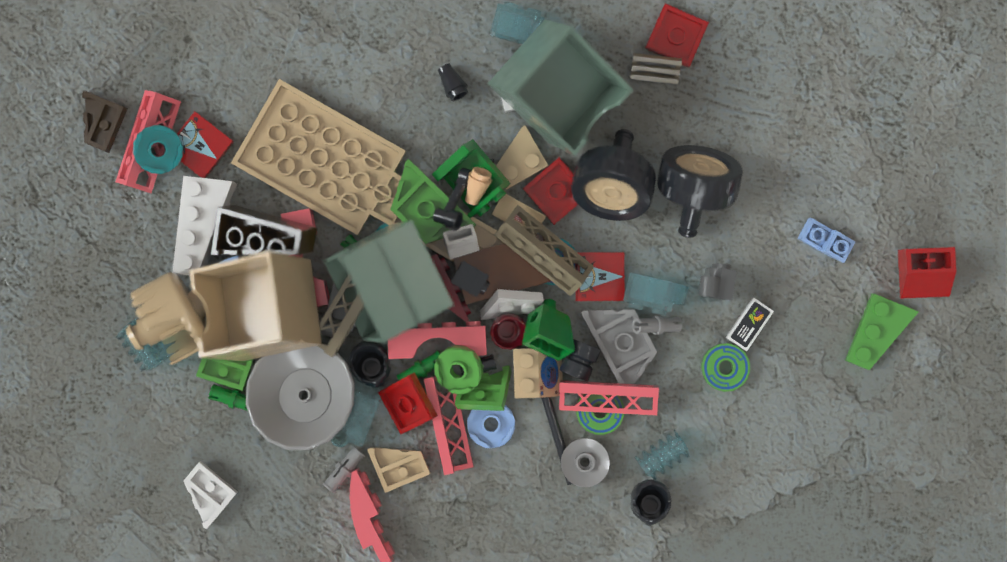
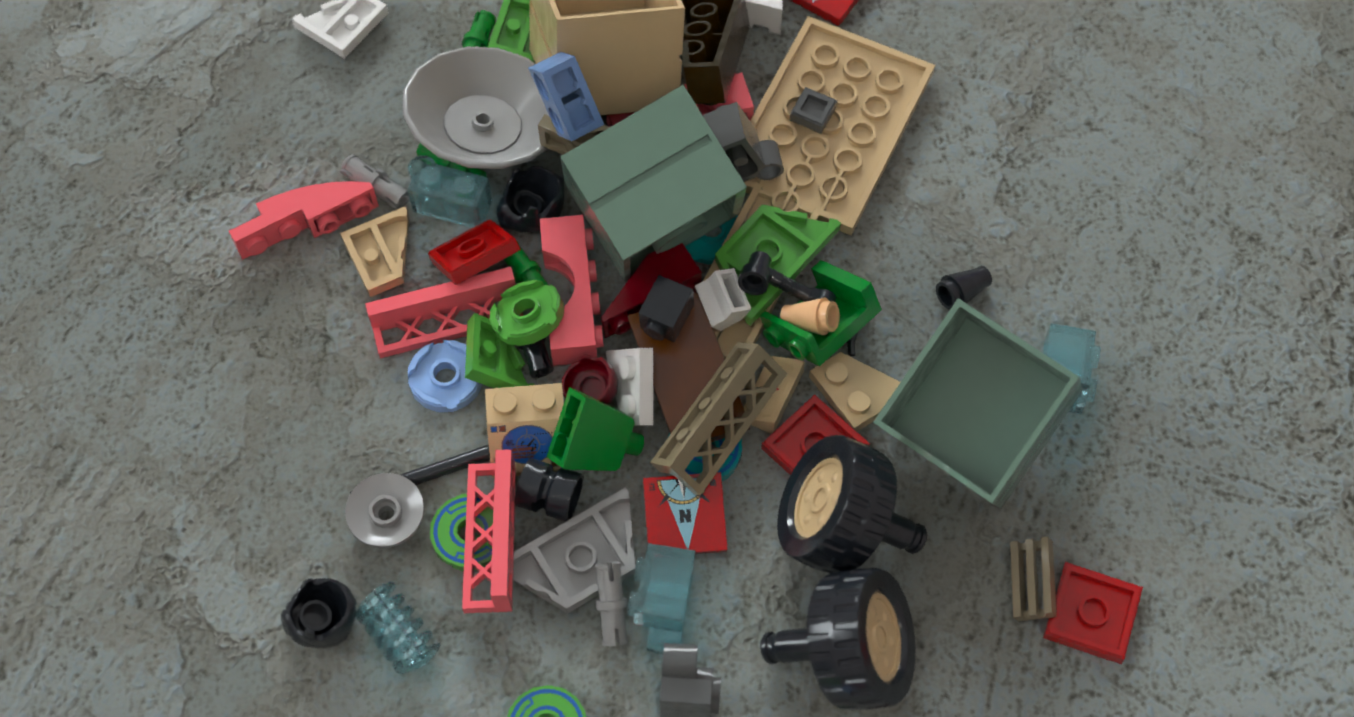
camera: 85 degrees right, 25 degrees down
(312, 167) = (813, 110): none -> dark grey tile
(326, 336) = (566, 96): none -> medium blue brick
(348, 222) = (742, 145): none -> dark grey hinge

